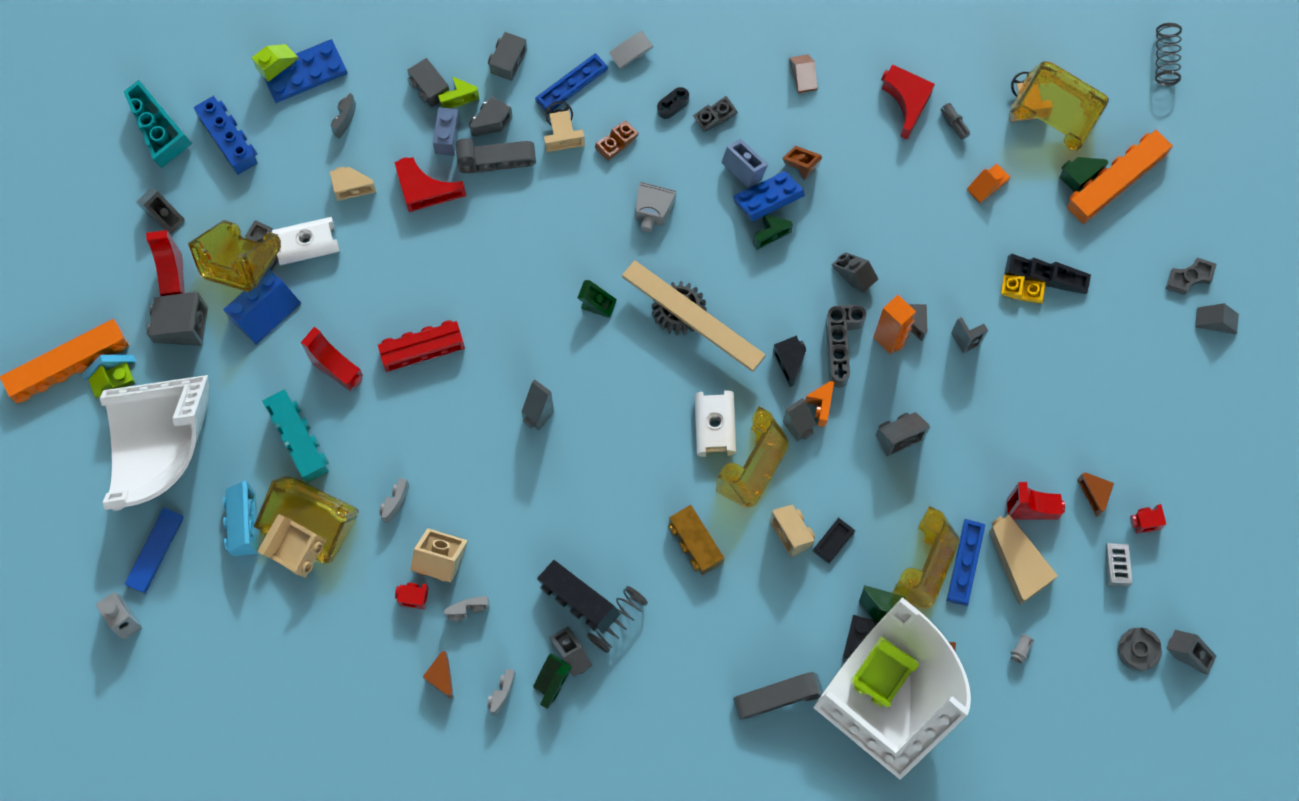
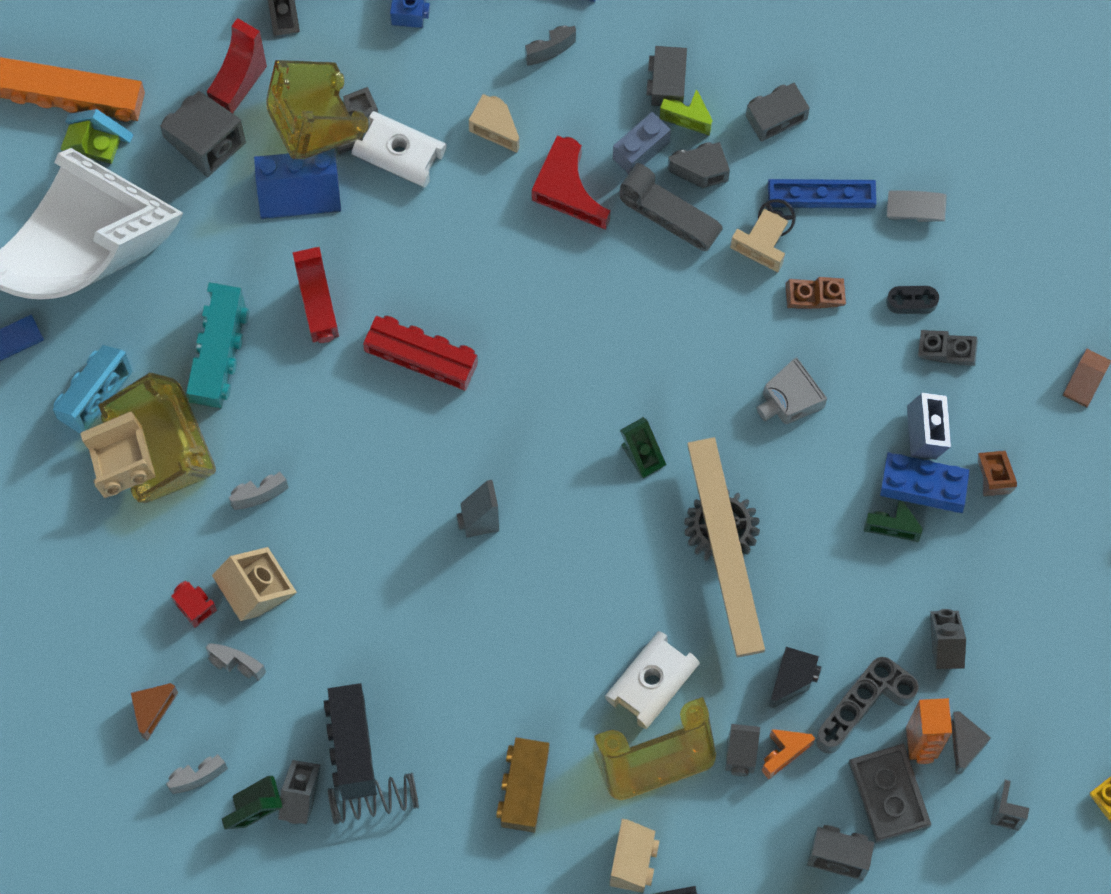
camera: 40 degrees right, 0 degrees up
(896, 380) = (889, 793): none -> dark grey tile

